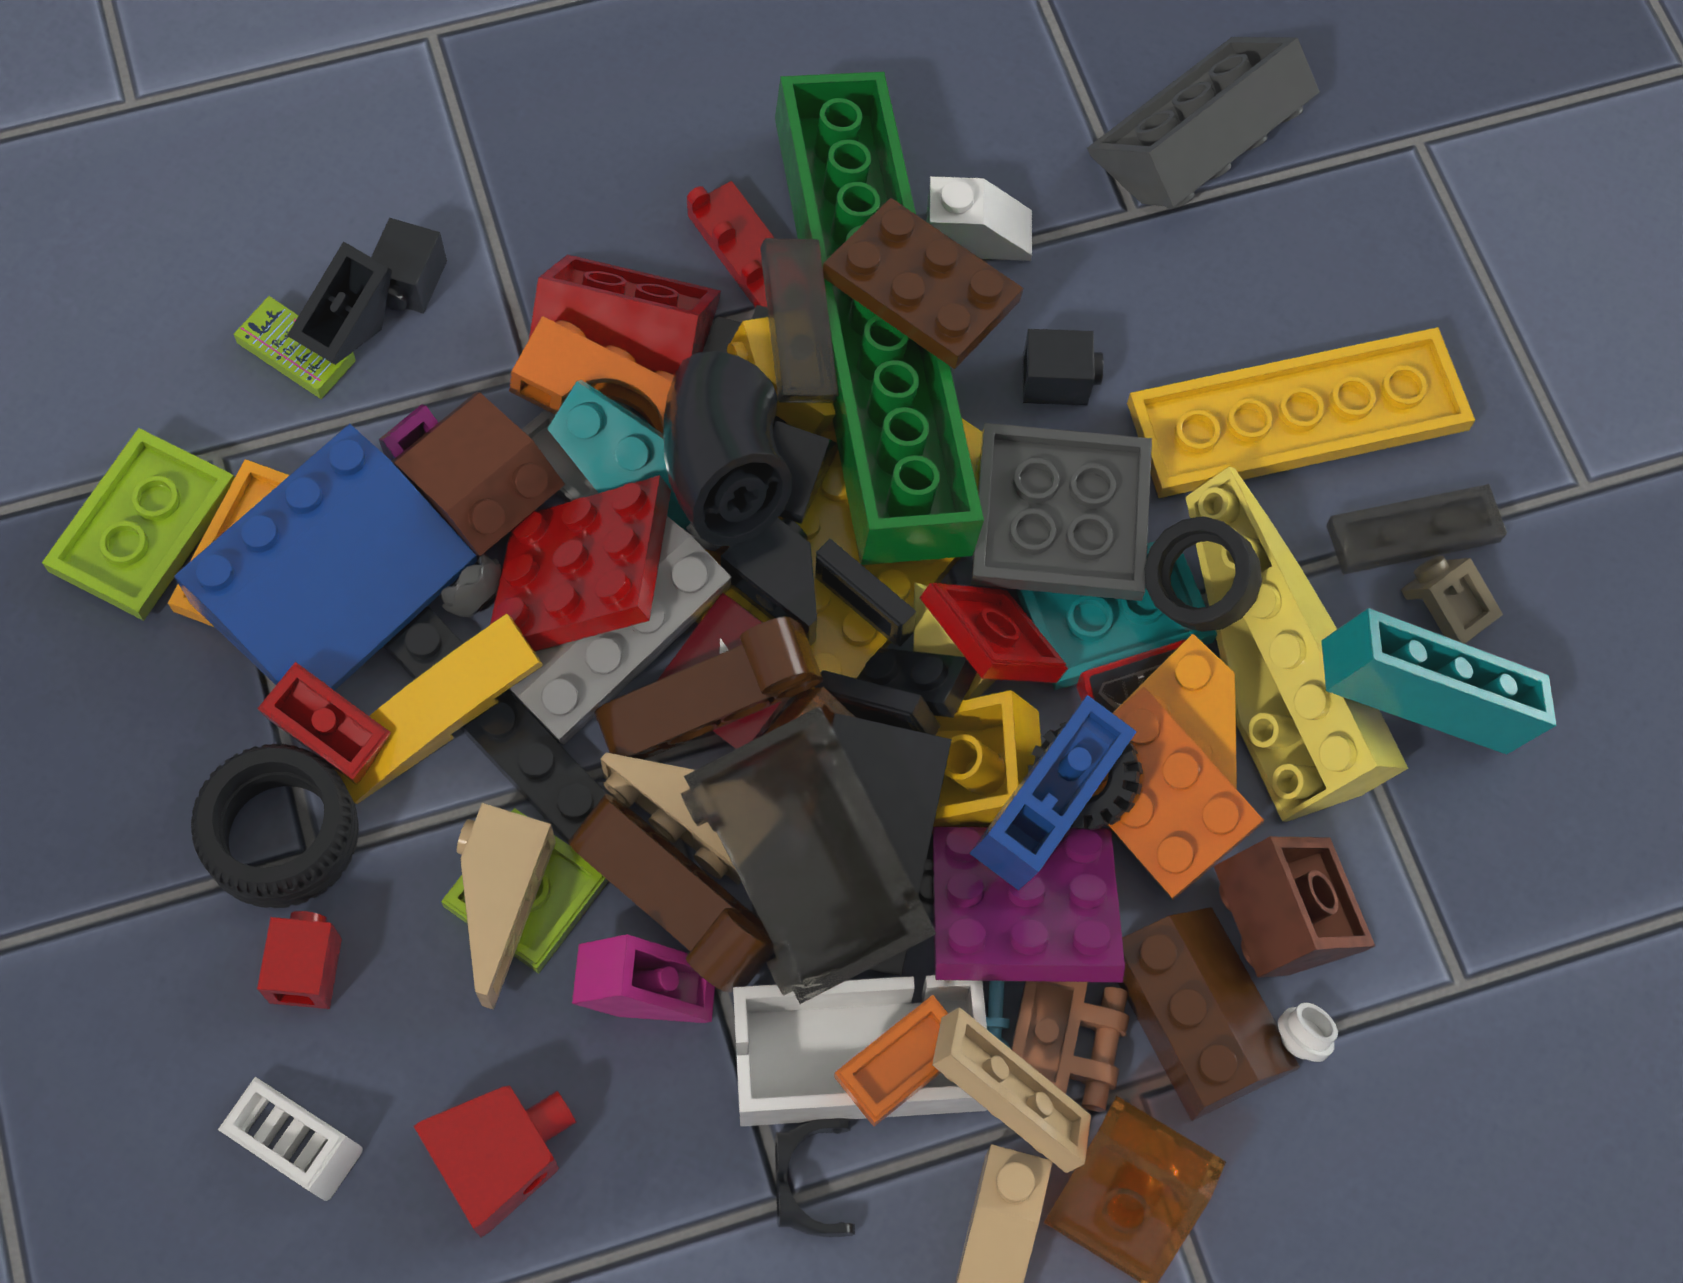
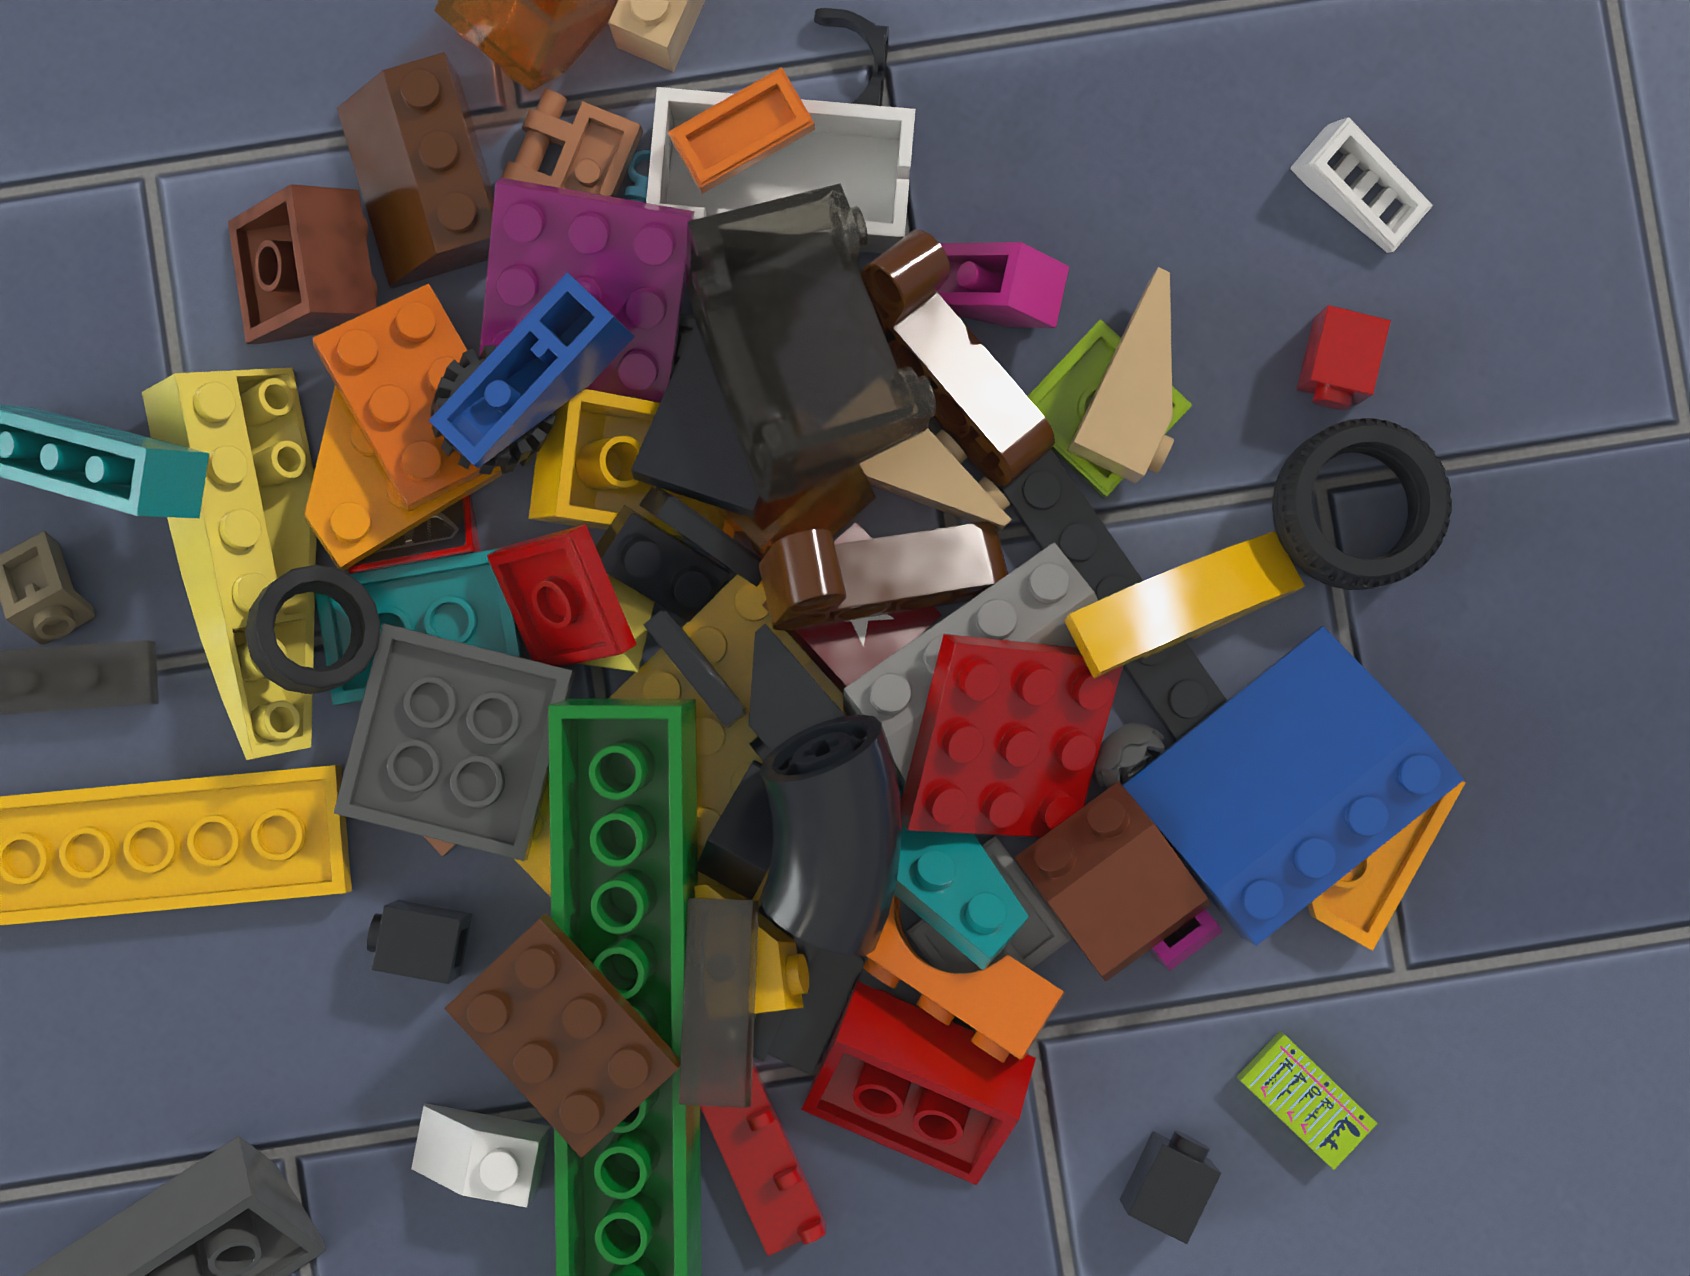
camera: 165 degrees left, 20 degrees up
(139, 524) = (1492, 890): lime plate -> none
(325, 722) = (1305, 598): red slope -> none
(344, 306) = (1250, 1129): black slope -> none
(494, 1151) = (1162, 134): red torso -> none
(1012, 1090) = (637, 79): tan plate -> none
(1308, 1032) = (320, 134): white plate -> none

